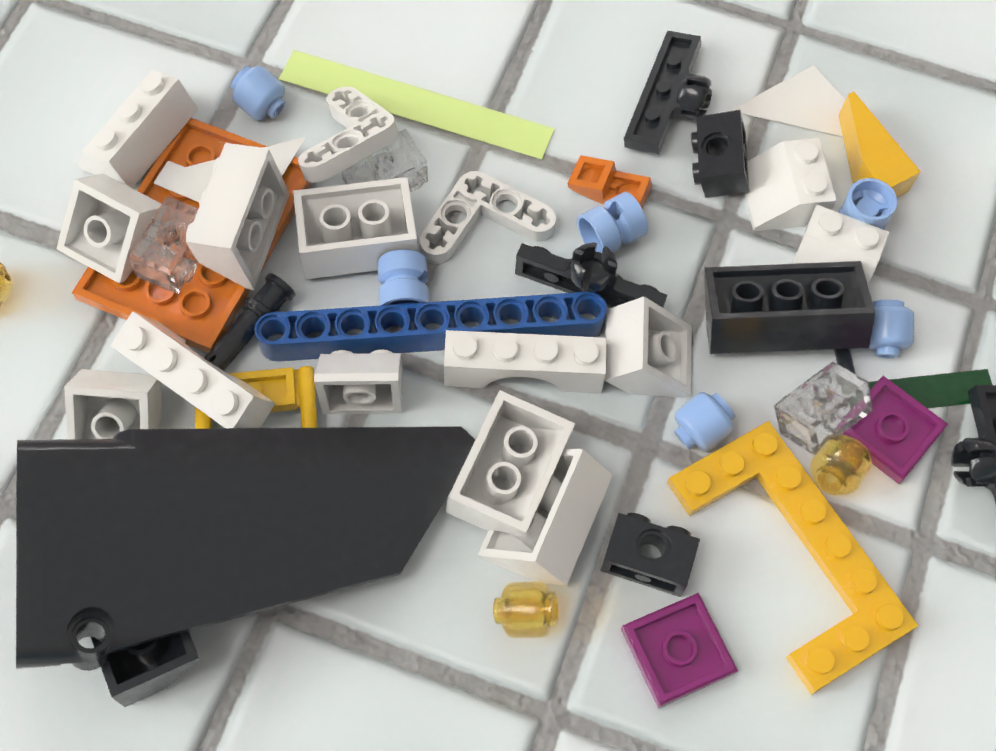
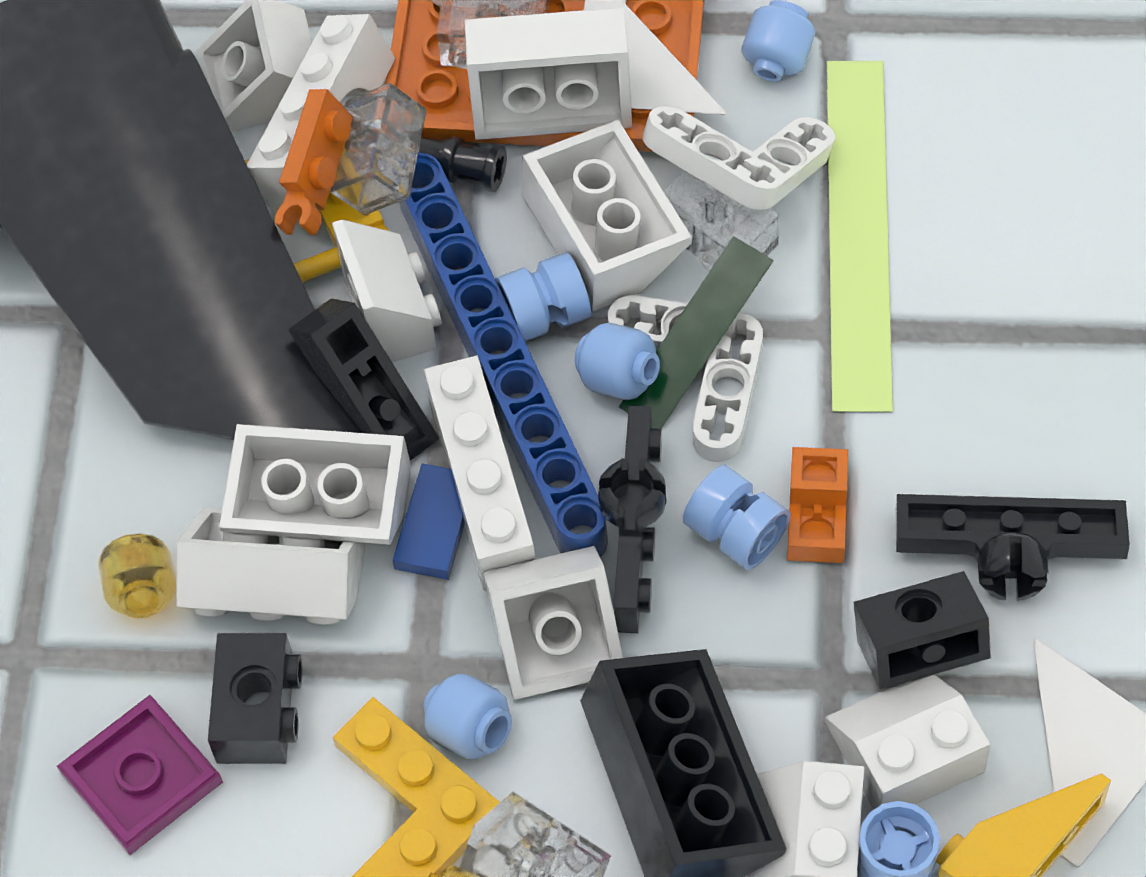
camera: 80 degrees right, 5 degrees down
(228, 344) = (379, 163): none -> clear brick
(257, 383) = (313, 161): none -> orange plate
(425, 410) = (361, 374): none -> black slope
(468, 205) = (702, 327): none -> dark green sticker
(473, 255) = (615, 361): none -> light blue head
(548, 398) = (431, 525): none -> blue tile

